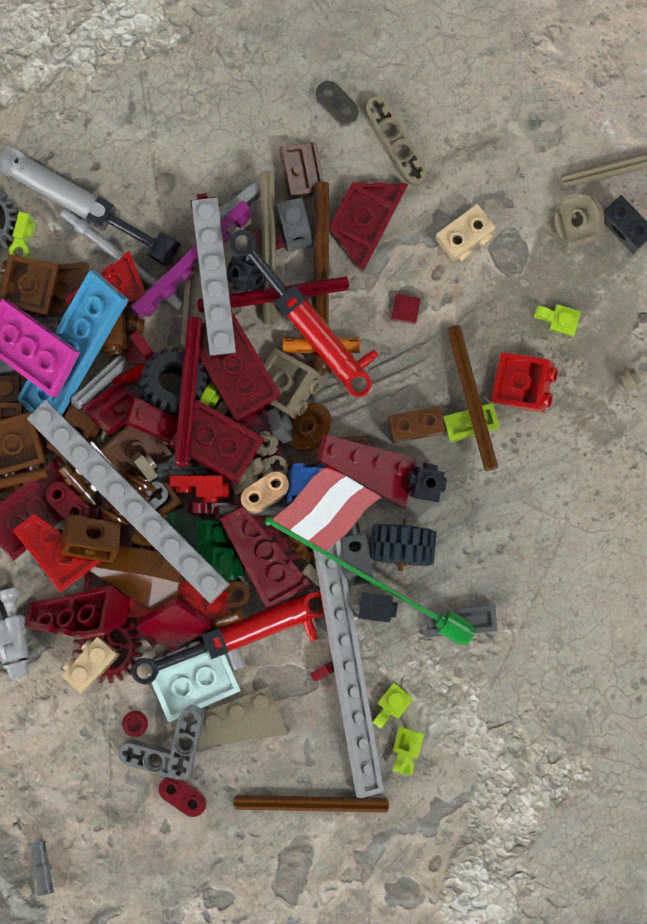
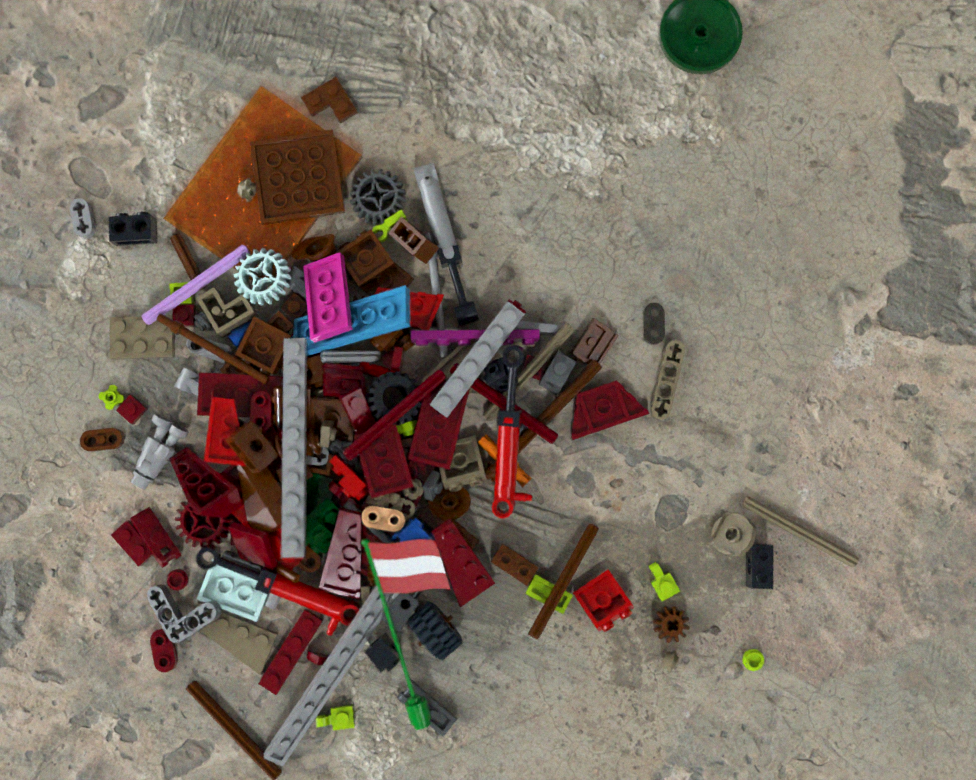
camera: 40 degrees right, 0 degrees up
(41, 868) = (40, 612): dark grey pin -> none
(56, 228) = (413, 240): none -> reddish brown brick
(64, 730) = (132, 543): none -> dark red plate
(79, 706) = (155, 536): none -> dark red plate
(90, 665) = (179, 522): tan brick -> none
(295, 689) = (290, 652): none -> dark red plate
(405, 309) = (576, 487): dark red plate -> none
(408, 746) = (322, 754): lime plate -> none
(436, 484) = (486, 605): black brick -> none
(465, 234) = (655, 476): tan brick -> none
(607, 354) = (671, 632): none -> reddish brown gear

